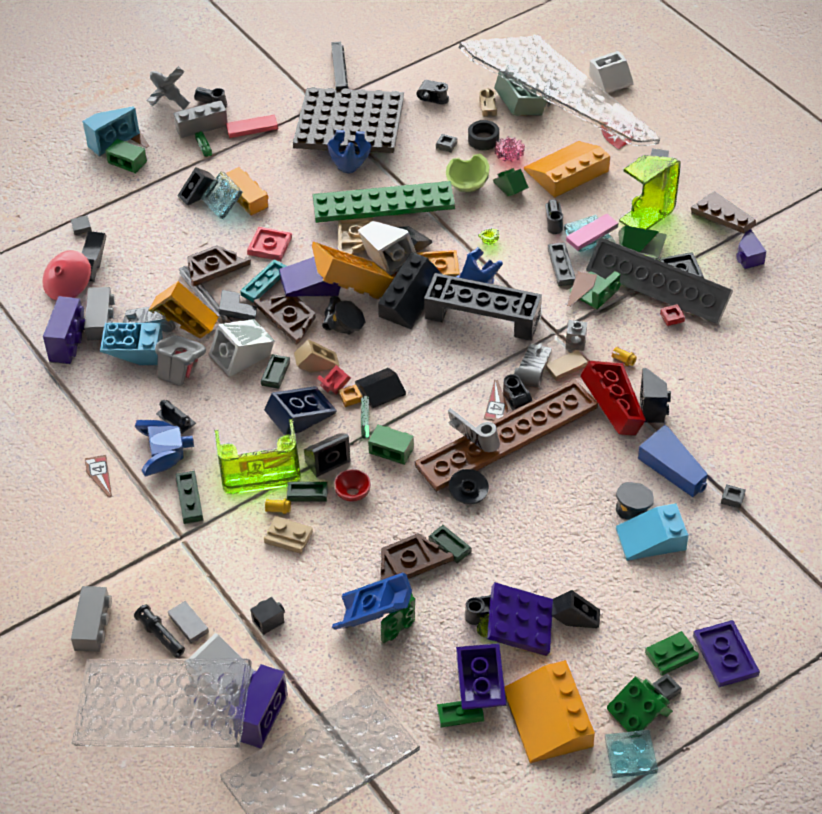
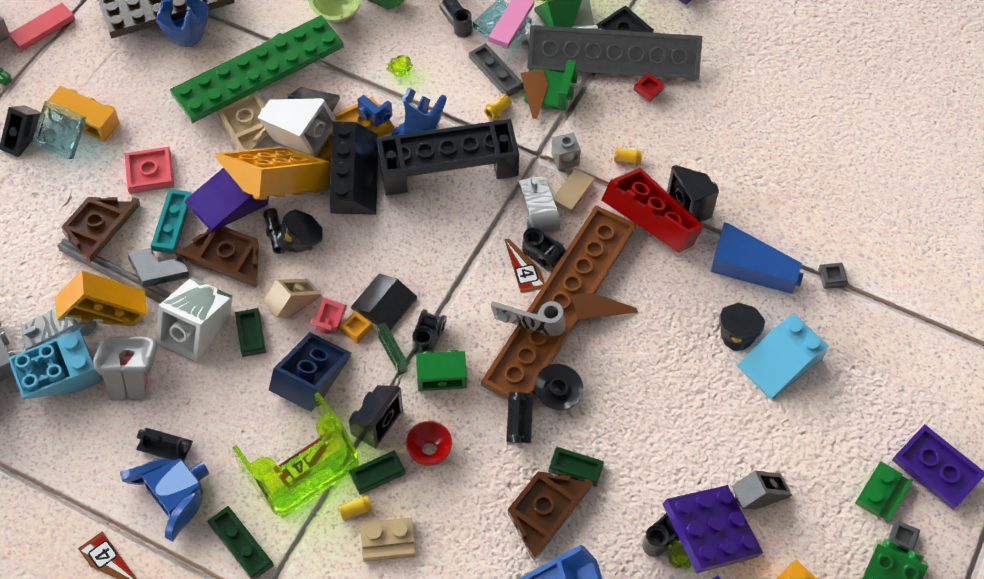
camera: 30 degrees left, 10 degrees up
(398, 415) = (428, 329): none -> black piece
(427, 494) = (519, 417): none -> black hinge
(449, 261) = (373, 113): none -> blue bracket
(531, 445) = (595, 305): none -> dark orange sticker
(546, 288) = (494, 109): none -> yellow pin

